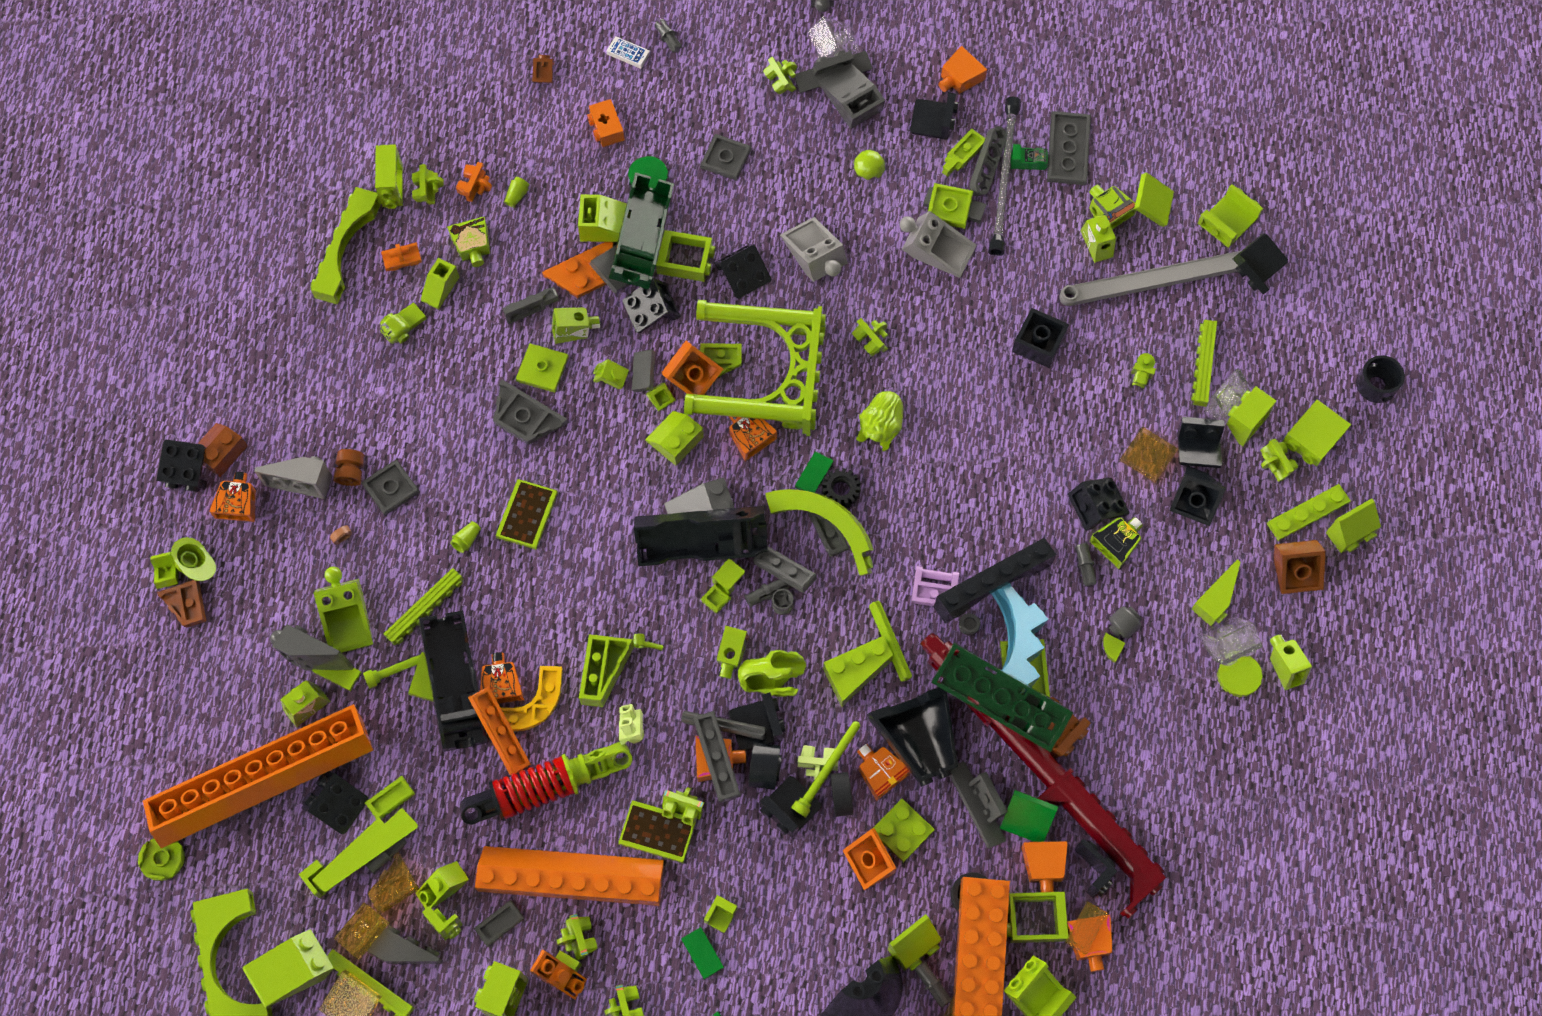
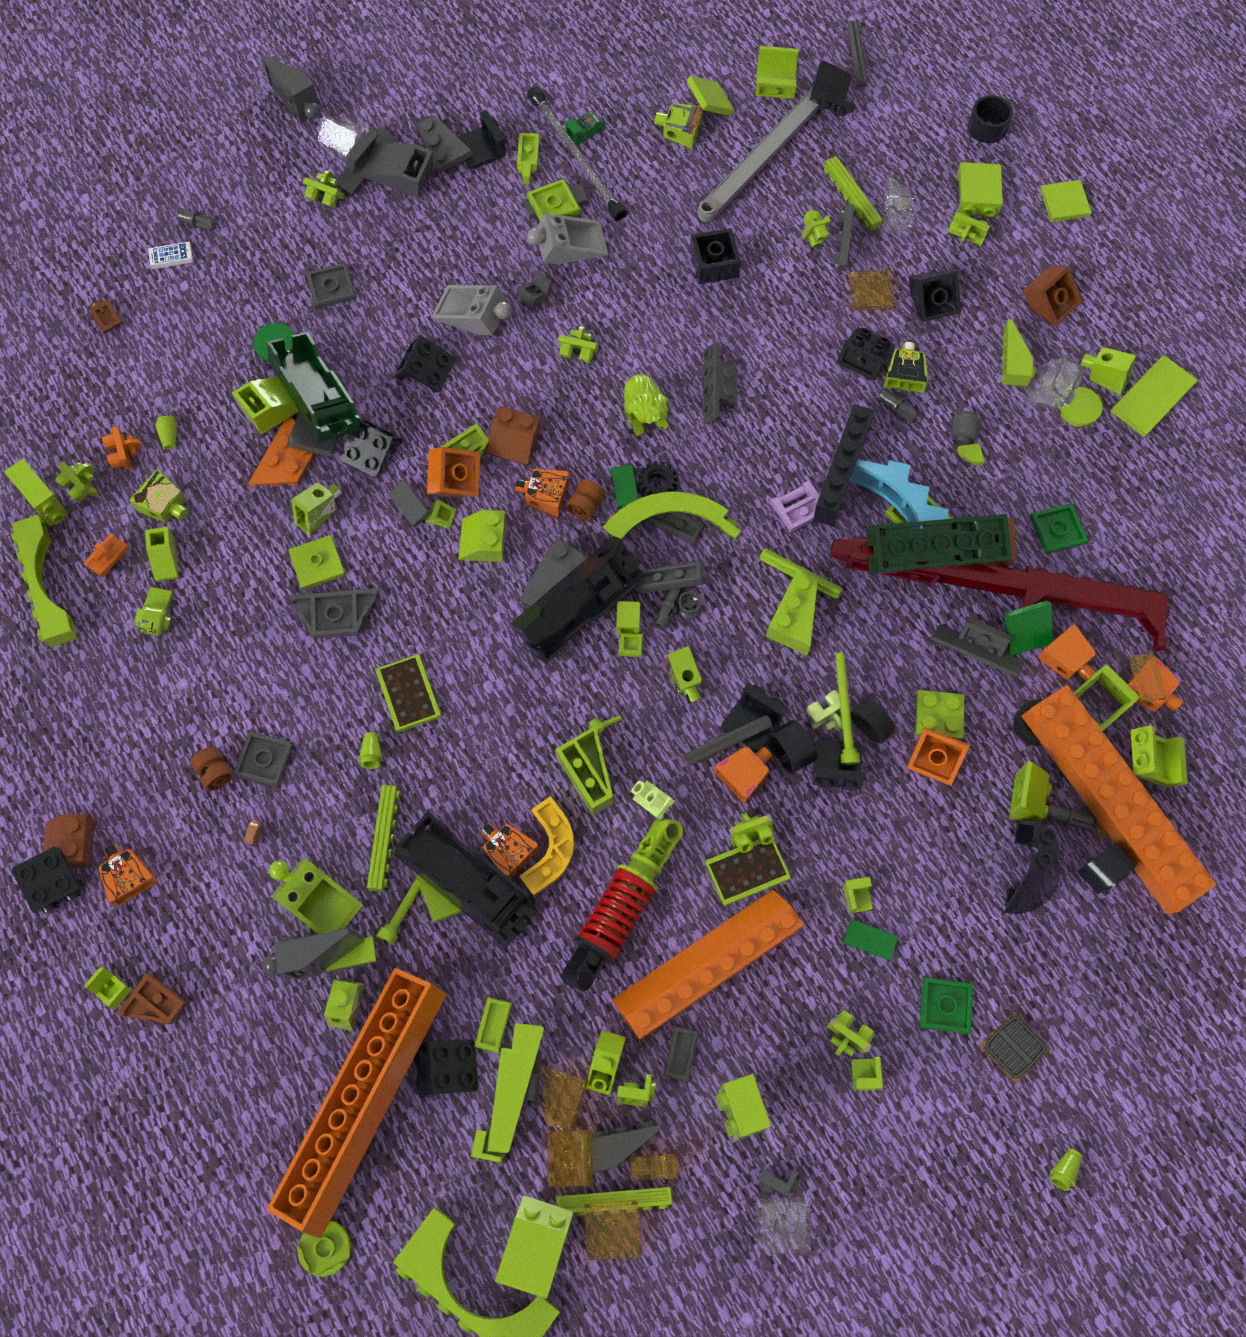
camera: 40 degrees left, 0 degrees up
(193, 559) = (129, 957): lime piece -> none
(297, 475) = (168, 810): light grey slope -> none
(413, 984) = (653, 1167): none -> clear yellow leg
(499, 731) = (545, 889): orange tile -> none
(529, 305) = (261, 517): dark grey hinge -> none
(557, 974) = (770, 1054): orange slope -> none
(568, 960) = (770, 1036): lime tile -> none
(573, 937) = (757, 1012): lime hips -> none
(610, 373) = (382, 525): lime bracket -> none
(611, 131) = (201, 323): orange brick -> none
(683, 271) = (375, 398): lime window -> none
(716, 757) = (748, 768): dark grey tile -> none
(761, 372) = (513, 435): none -> dark orange slope
(771, 673) = (729, 669): lime hair -> none
(776, 461) = (586, 498): none -> dark orange wheel
(790, 413) = (514, 371): lime arch -> none
(869, 164) = (458, 214): lime hair -> none
(875, 268) = (537, 290): none -> dark grey bracket
(881, 770) = (884, 680): orange torso -> none
(902, 100) = (446, 146): none -> dark grey wing
(920, 734) = (893, 625): black cone -> none
(956, 445) = (719, 383): none -> dark grey bracket
(961, 72) = (473, 94): orange torso -> none
(969, 624) = (850, 516): dark grey tile -> none
(985, 159) = (554, 149): dark grey beam -> none
(1068, 148) = (608, 100): dark grey tile -> none
(1097, 234) = (693, 150): lime torso -> none
(1102, 865) = (1119, 622): black bracket -> none
(1130, 759) = (1059, 528): none -> green tile
(1145, 410) = (843, 237): none -> dark grey wing
(1200, 442) = (901, 254): black bracket -> none
(1250, 414) = (924, 204): lime slope -> none
(1308, 512) = (1022, 252): lime plate -> none
(1312, 711) = (1154, 395): none -> lime tile
(1317, 244) = (857, 53): none -> dark grey axle
(1355, 527) = (1068, 237): lime slope -> none
(1389, 493) = (1065, 200): none -> lime tile

